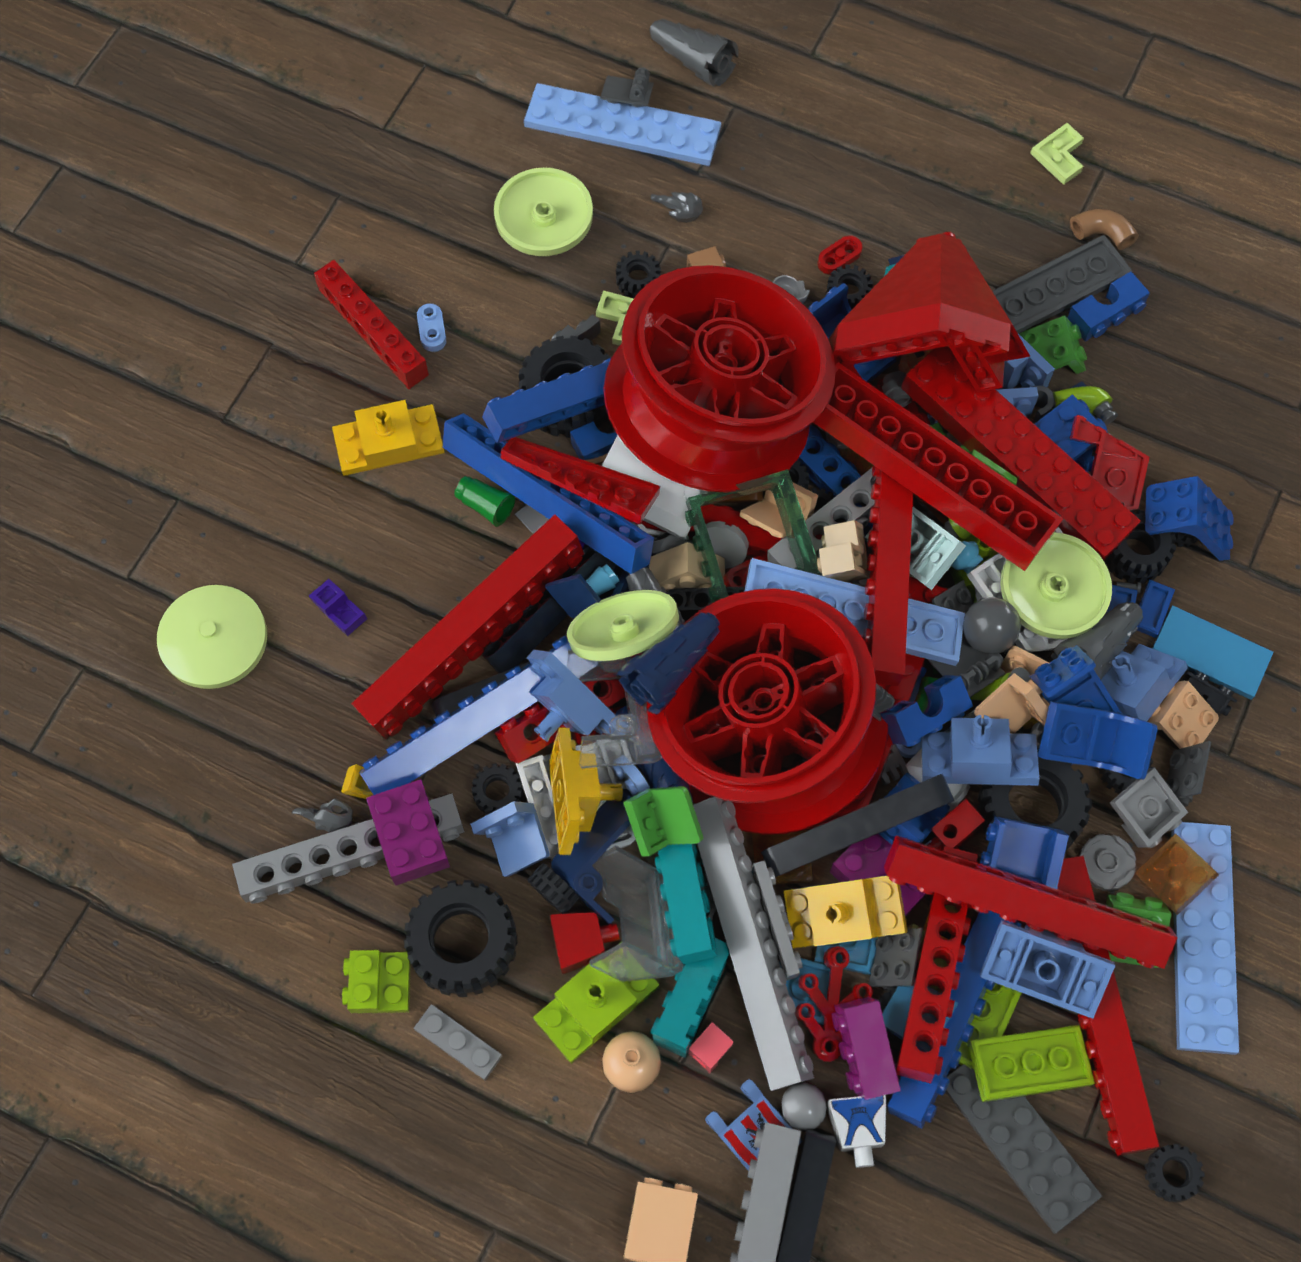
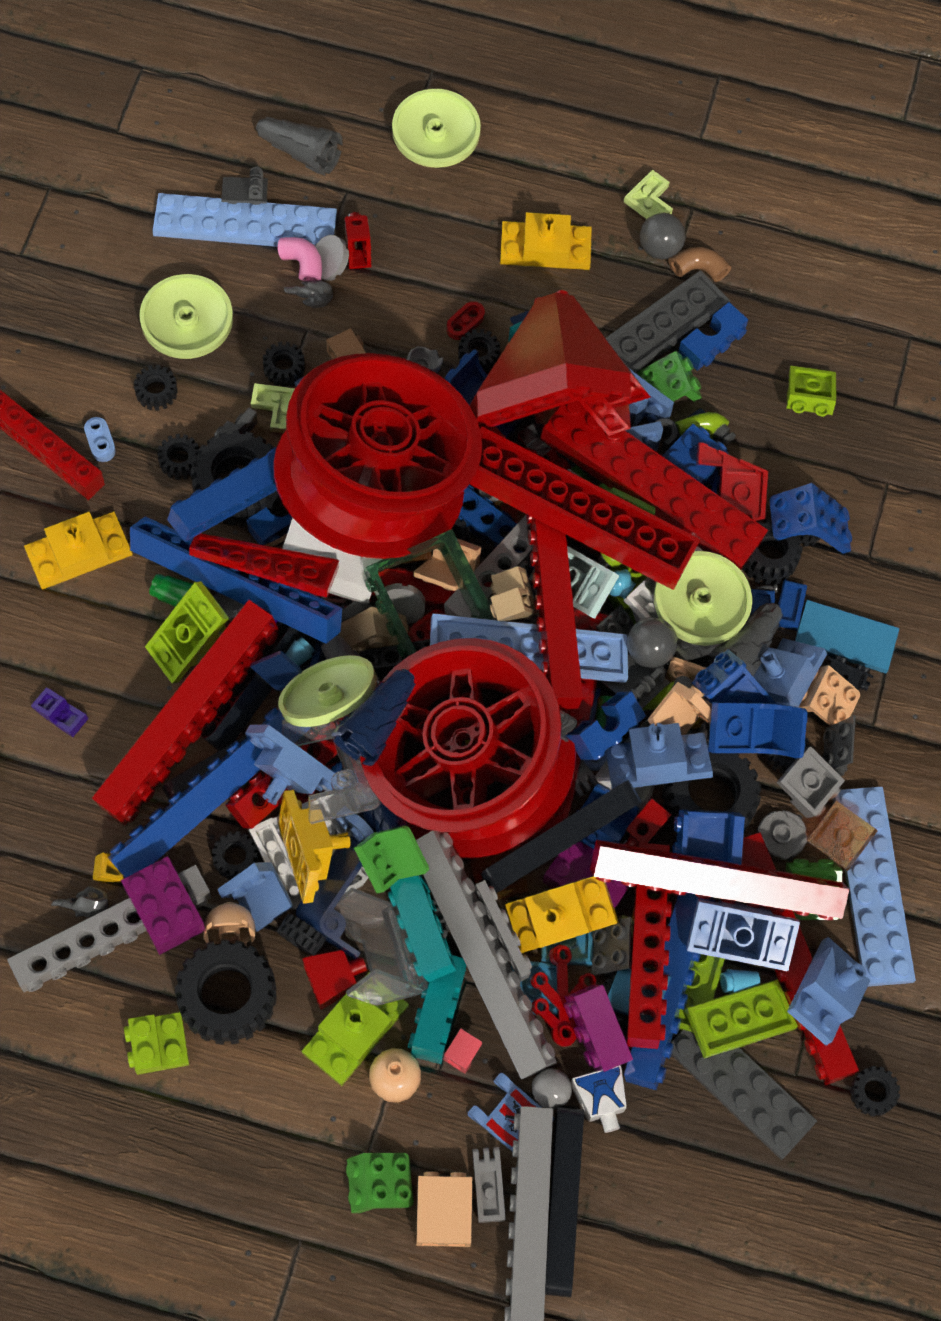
camera: 15 degrees left, 0 degrees up
(458, 1042) = (238, 1084): light grey plate -> none
(478, 863) = (229, 922): none -> light nougat cylinder
(485, 541) = (187, 632): none -> lime brick
(494, 270) = (155, 399): none -> black tyre
(504, 345) = (172, 446): none -> black tyre
(594, 1179) = (379, 1181): none -> bright green bracket
(679, 162) = (306, 253): none -> bright pink cylinder
(705, 170) = (333, 256): none -> light grey tile
(715, 1206) = (488, 1186): none -> light grey hinge
(737, 147) = (358, 230): none -> red torso
(840, 51) = (436, 128): none -> yellowish green dish
(940, 184) = (546, 242): none -> yellow brick
(1034, 1019) = (738, 980): none -> medium azure cone
(1067, 192) = (662, 235): none -> dark grey piece
(1137, 1050) = (829, 991): none -> medium blue brick
(1209, 379) = (811, 391): none -> lime plate

